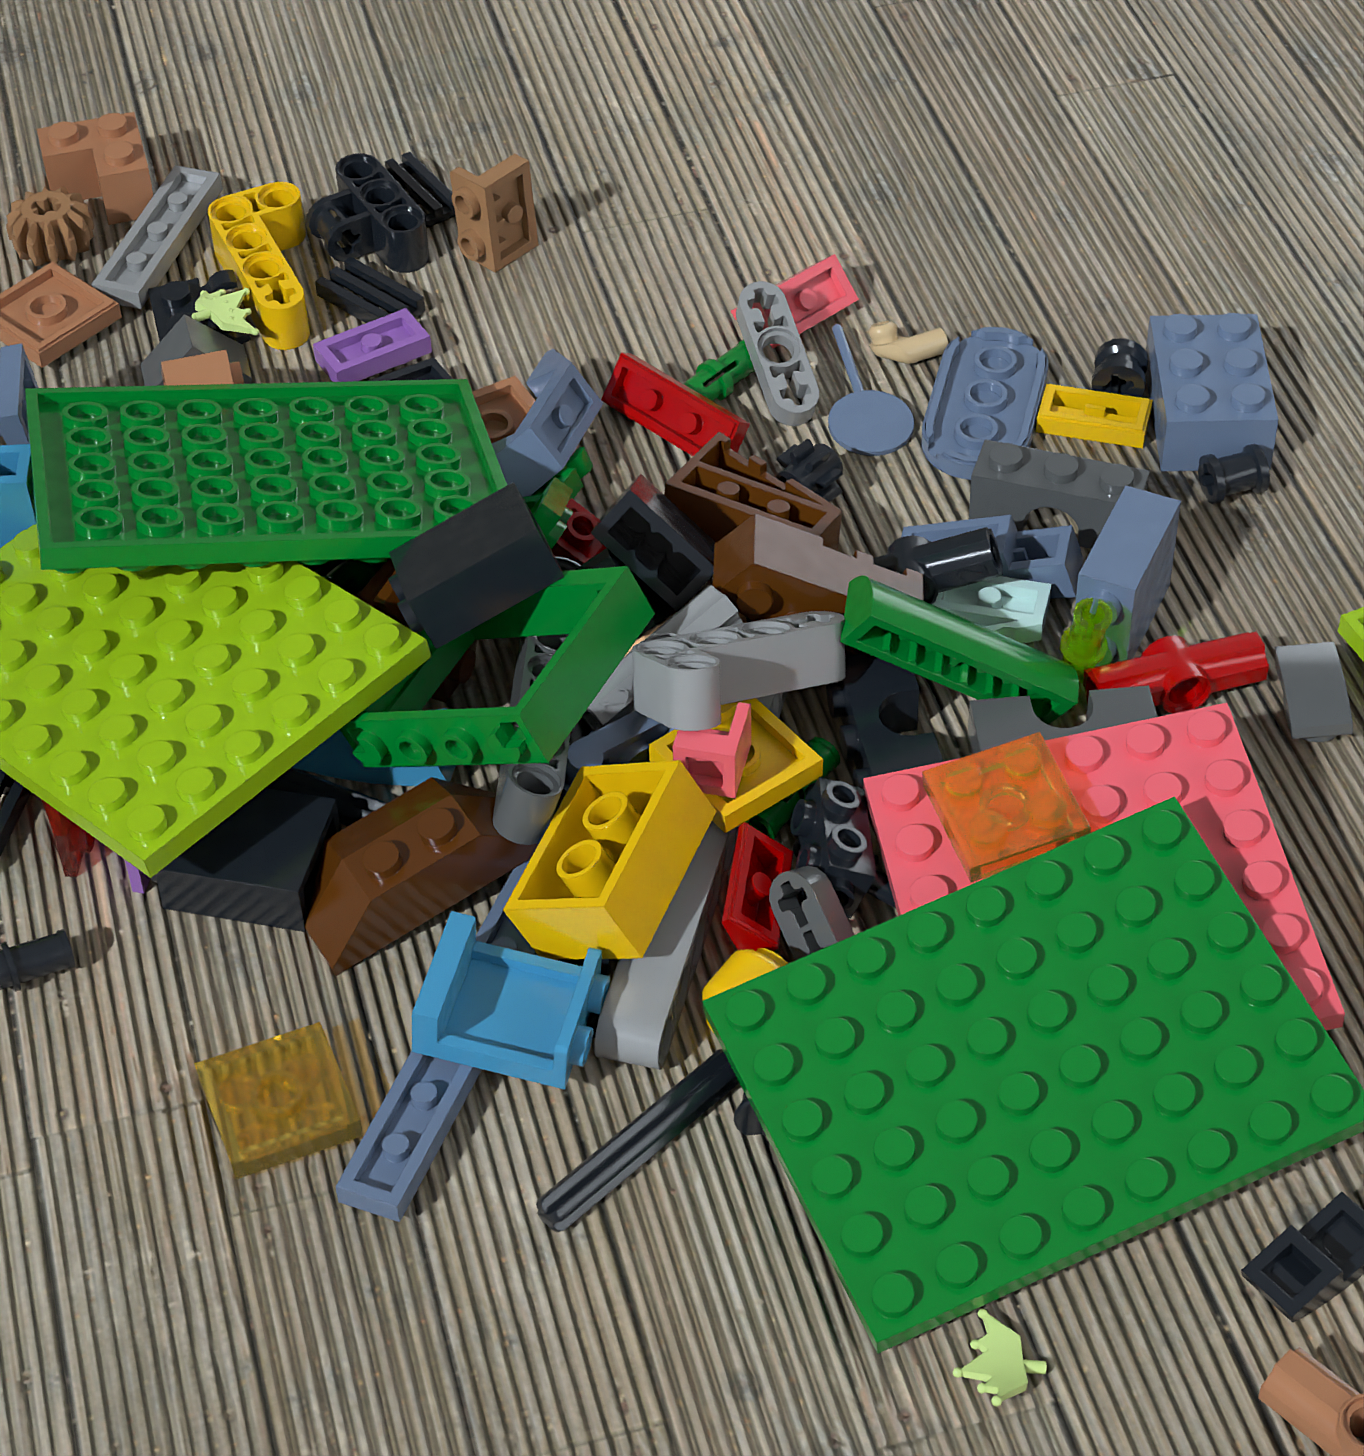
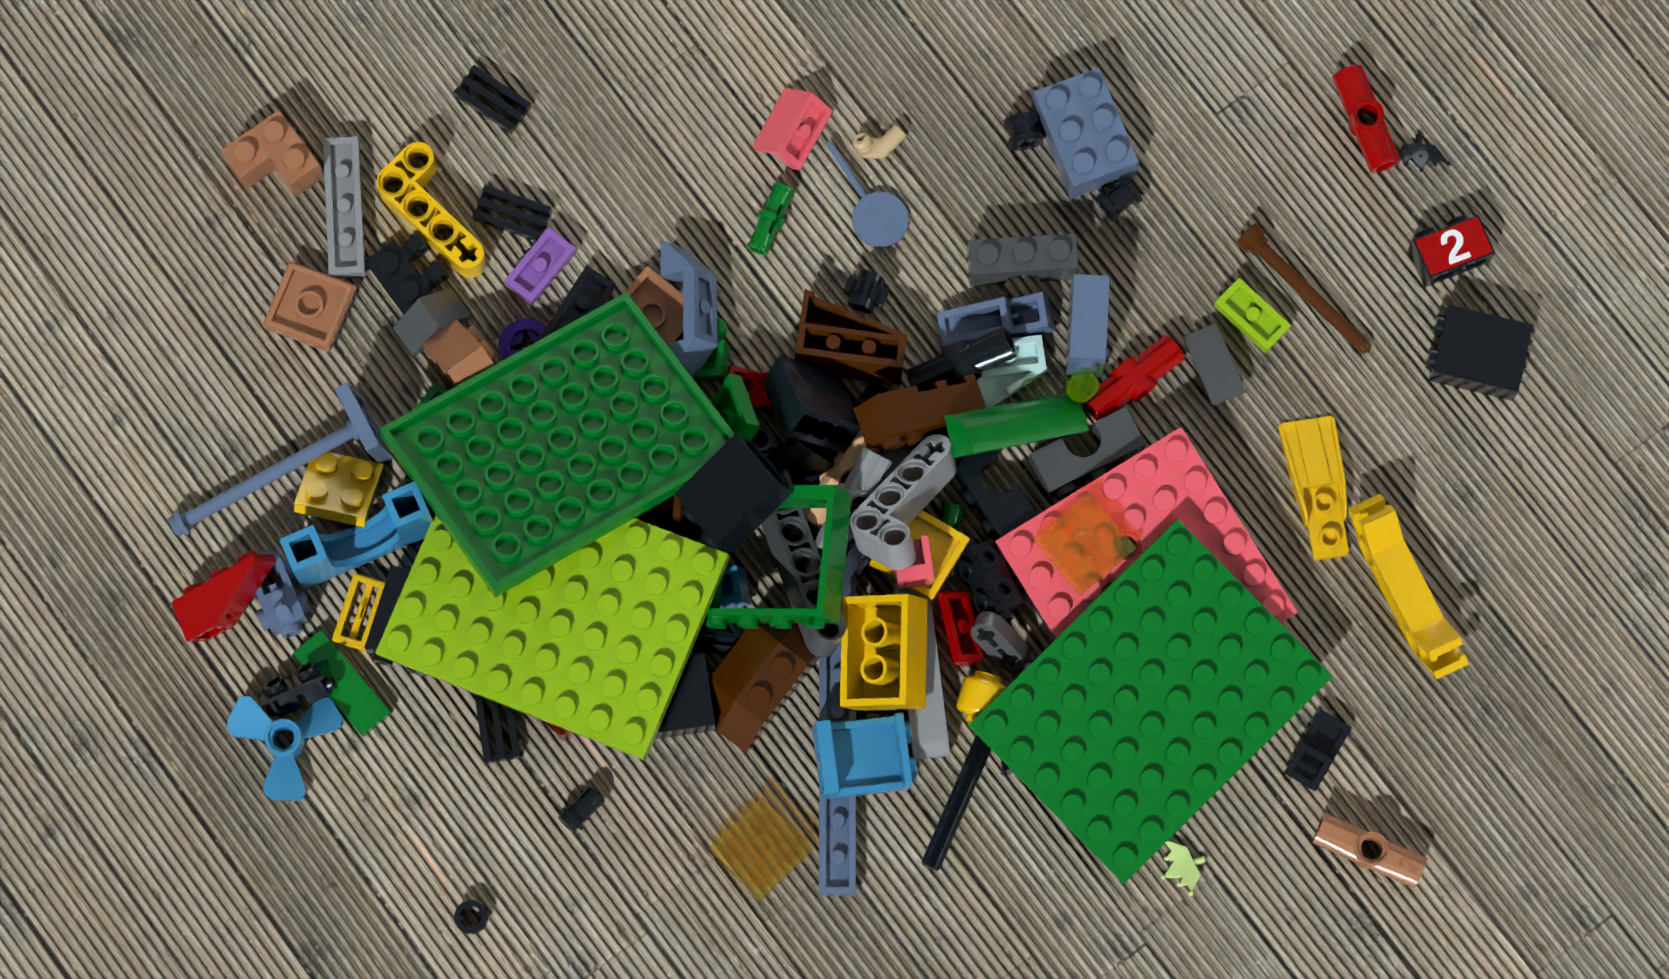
camera: 25 degrees left, 30 degrees up
(50, 226) = (278, 231): medium nougat gear -> none
(225, 310) = (433, 275): yellowish green piece -> none
(370, 217) = (471, 156): black piece -> none
(495, 212) = (573, 133): medium nougat bracket -> none
(669, 406) = (759, 261): red tile -> none
(770, 374) = (799, 165): light grey beam -> none
(983, 391) = (945, 178): sand blue tile -> none
(1094, 415) = (1021, 180): yellow tile -> none

